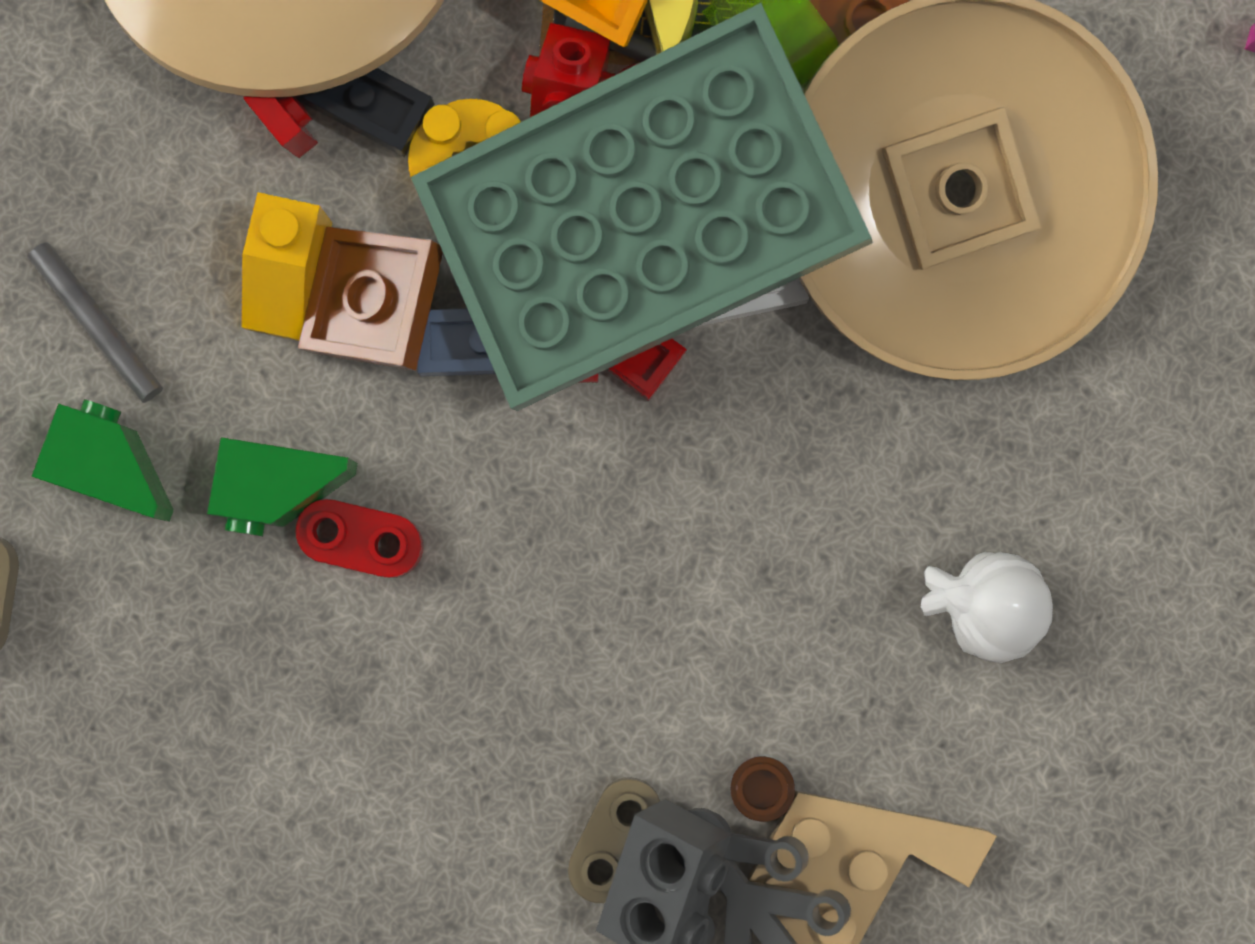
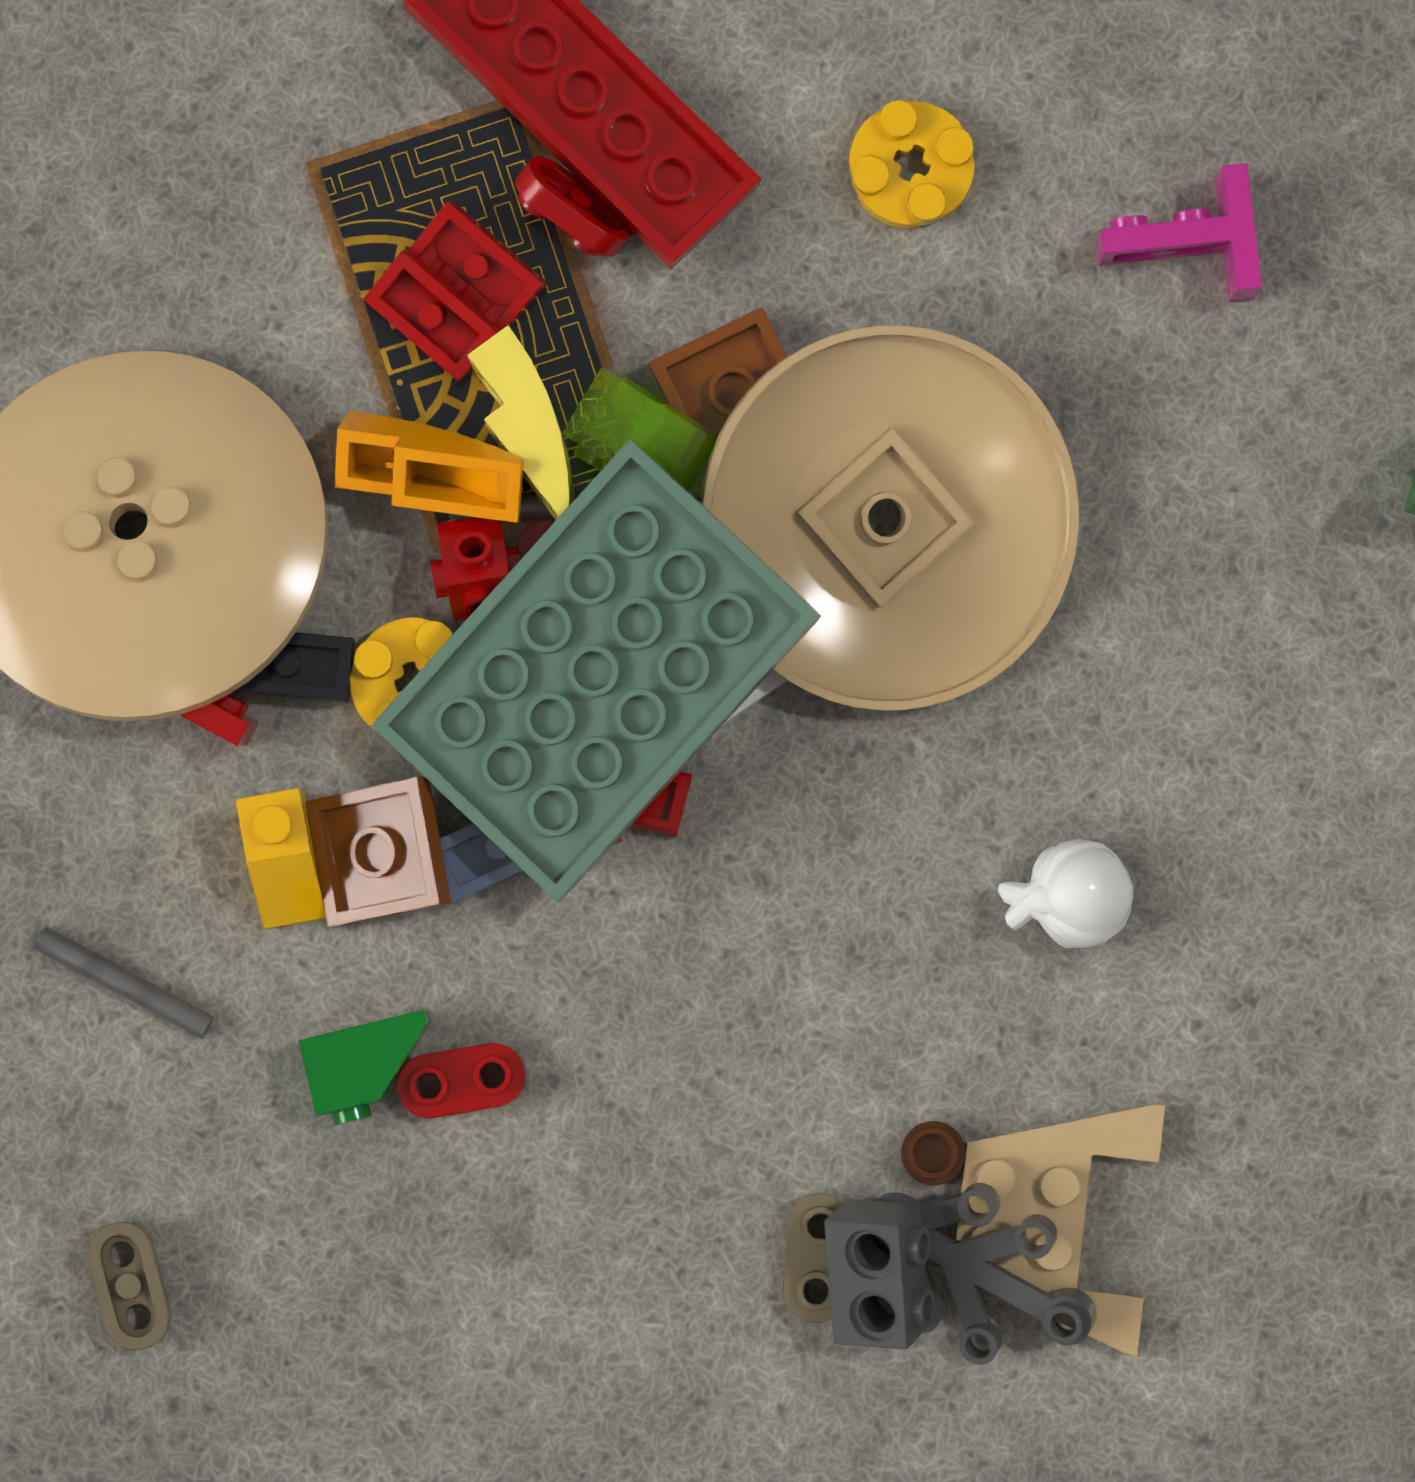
camera: 25 degrees left, 0 degrees up
(101, 460) = (191, 1109): green slope -> none

